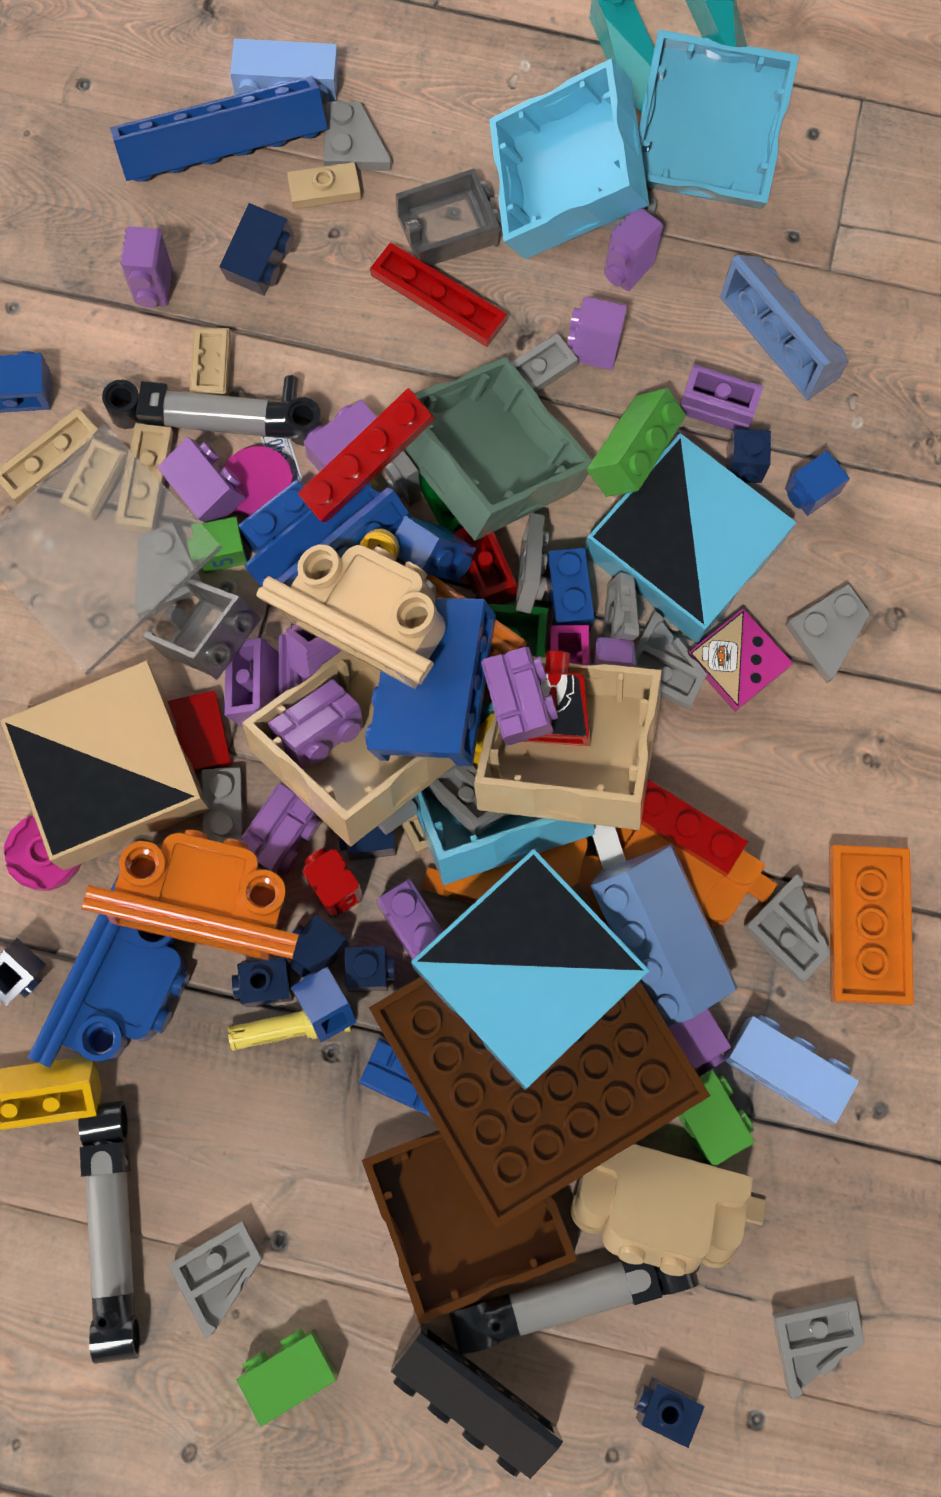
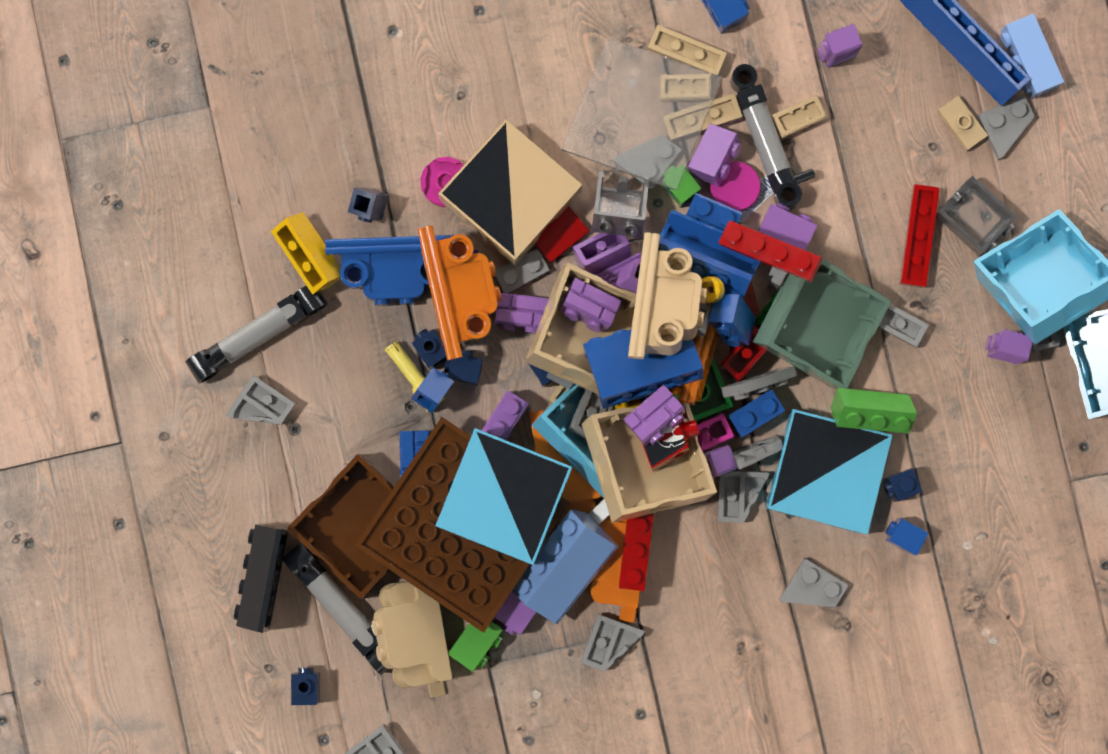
camera: 70 degrees right, 10 degrees up
(257, 249) = (890, 107): dark blue brick -> none
(287, 1376) = (227, 469): bright green brick -> none
(332, 882) = (504, 360): red brick -> none
(368, 969) = (466, 404): dark blue brick -> none
(596, 332) = (937, 350): medium lavender brick -> none
(720, 399) = (932, 449): medium lavender brick -> none
(740, 659) = (765, 538): tile -> none
(782, 325) = (1008, 467): medium blue slope -> none
(791, 1069) = (526, 676): light blue brick -> none
(871, 925) = (635, 688): orange plate -> none

